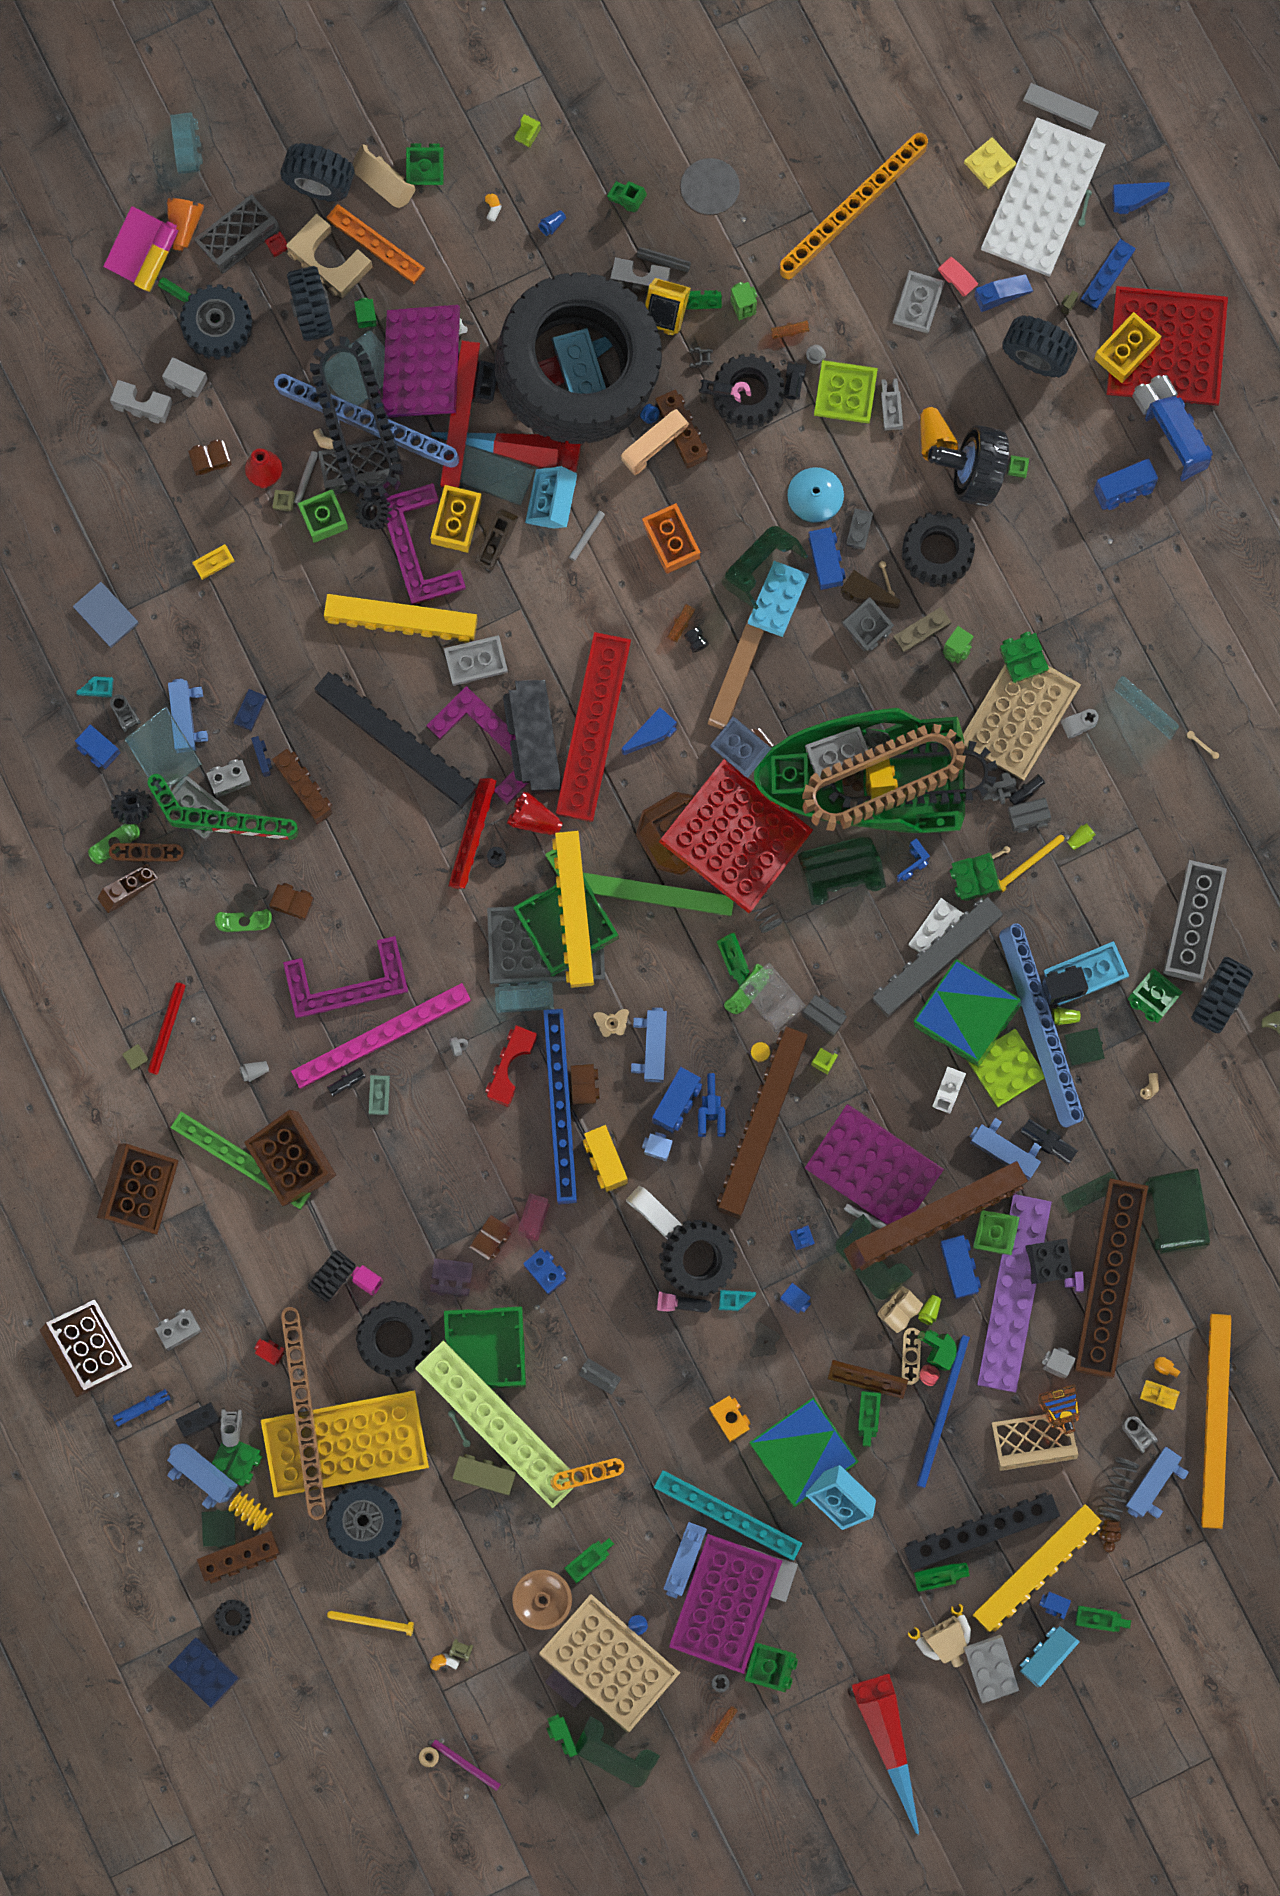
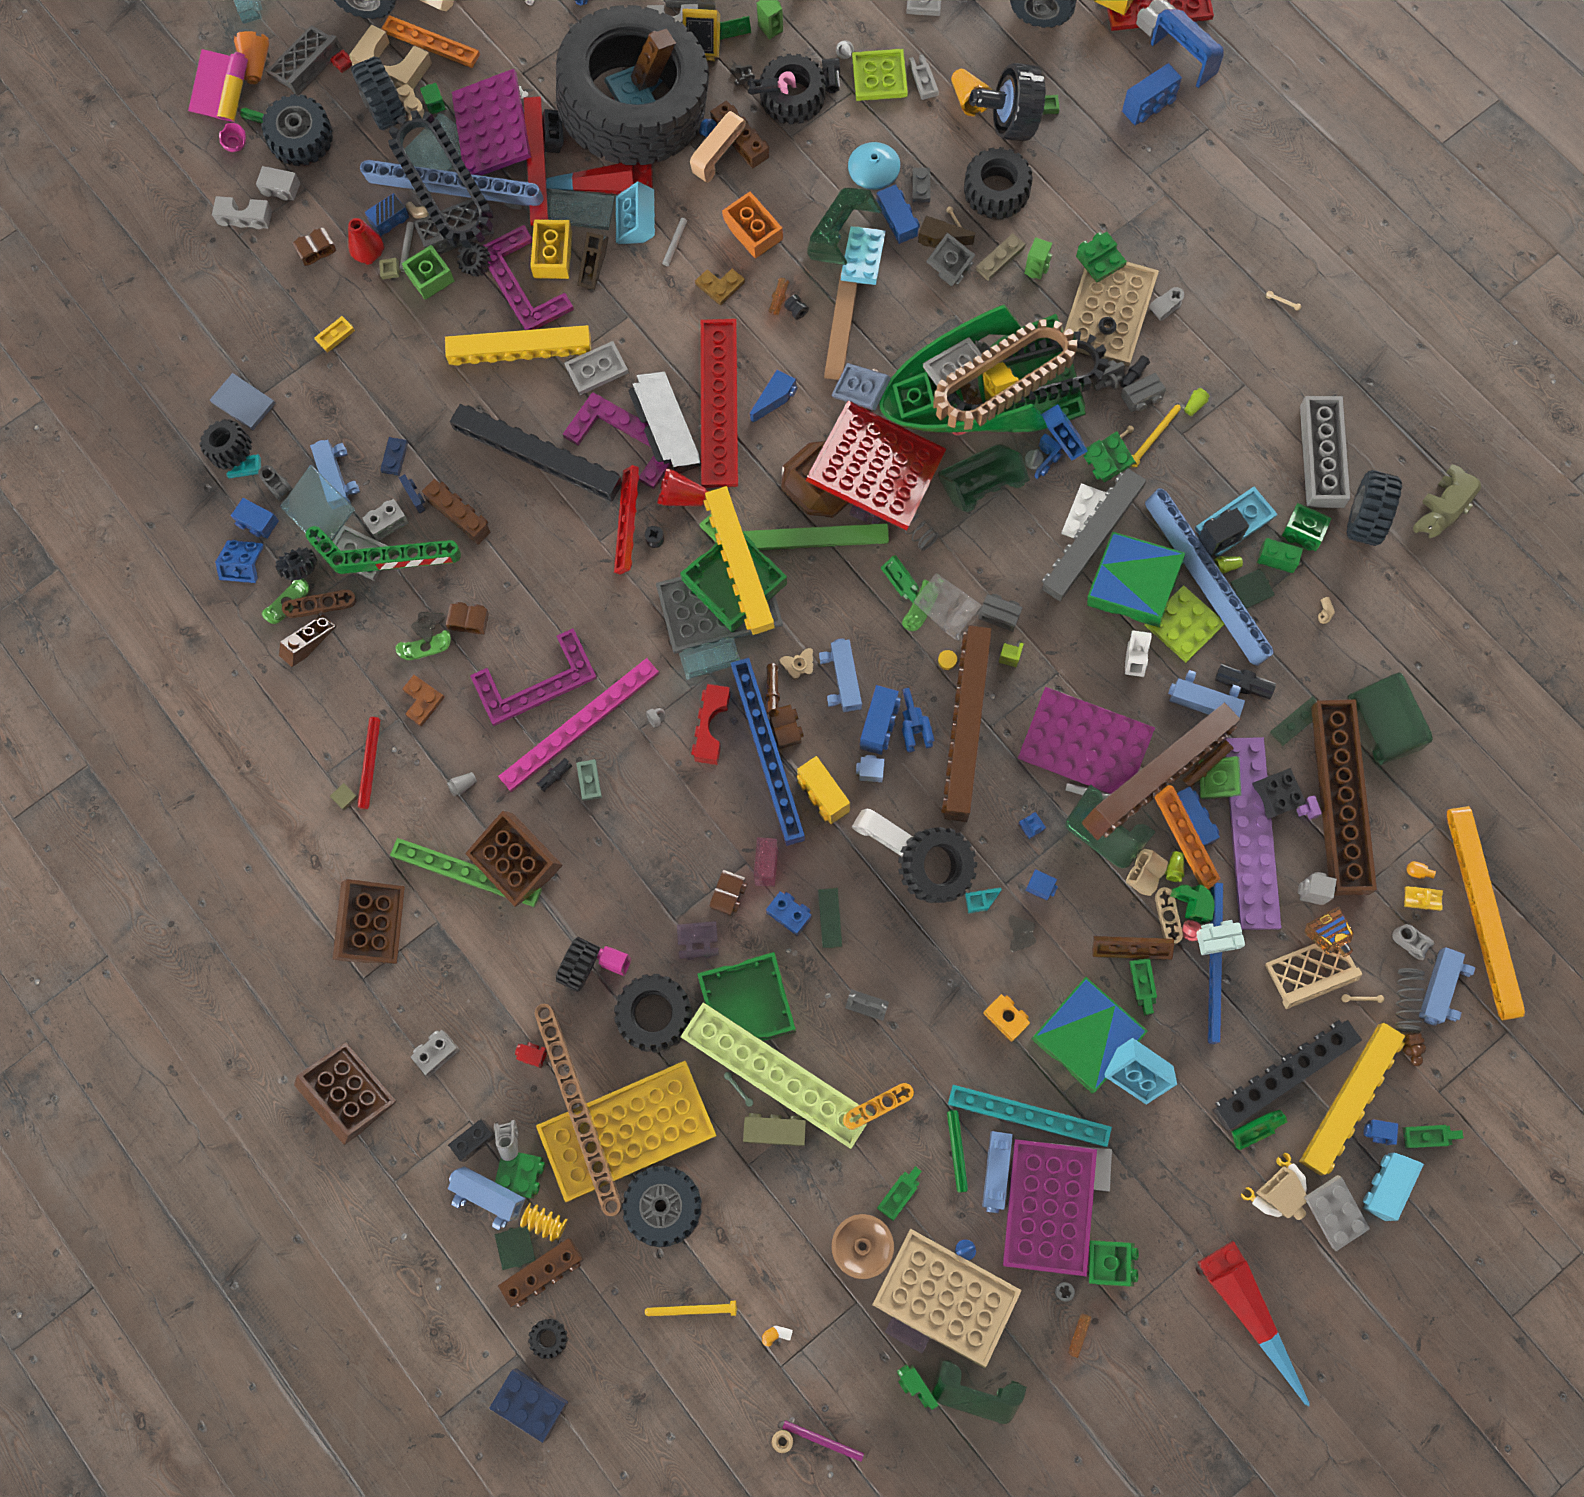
camera: 10 degrees left, 5 degrees down
(73, 652) = (225, 444): none -> black tyre
(74, 788) = (238, 561): none -> blue bracket
(141, 1407) = (412, 1140): blue pin -> none
(146, 313) = (232, 137): none -> dark pink hair
(235, 975) = (426, 700): none -> dark orange plate
(292, 438) = (387, 214): none -> blue brick
(340, 315) = (409, 101): none -> tan brick
(461, 1650) = (791, 1318): olive bush -> none
(577, 1051) = (772, 695): none -> reddish brown pin
(584, 1284) = (830, 918): none -> clear green tile
(604, 337) = (652, 59): none -> reddish brown brick
(621, 600) = (720, 289): none -> pearl gold plate
(652, 1533) = (957, 1151): none -> green axle
(668, 1302) = (917, 916): piece -> none
(790, 329) = (817, 35): clear orange pin -> none
(900, 860) = (1033, 459): none -> light grey tile
(933, 845) = (1064, 432): none -> blue brick
(943, 1286) = (1187, 837): none -> orange plate
(950, 1389) = (1220, 938): none -> light aqua brick
(991, 1214) = (1207, 764): none -> reddish brown pin
(1010, 729) = (1109, 322): none -> black plate
(1059, 1473) = (1345, 998): none -> tan hinge
(1119, 1019) = (1279, 555): none -> green brick
(1146, 707) = (1225, 275): clear light blue tile -> none

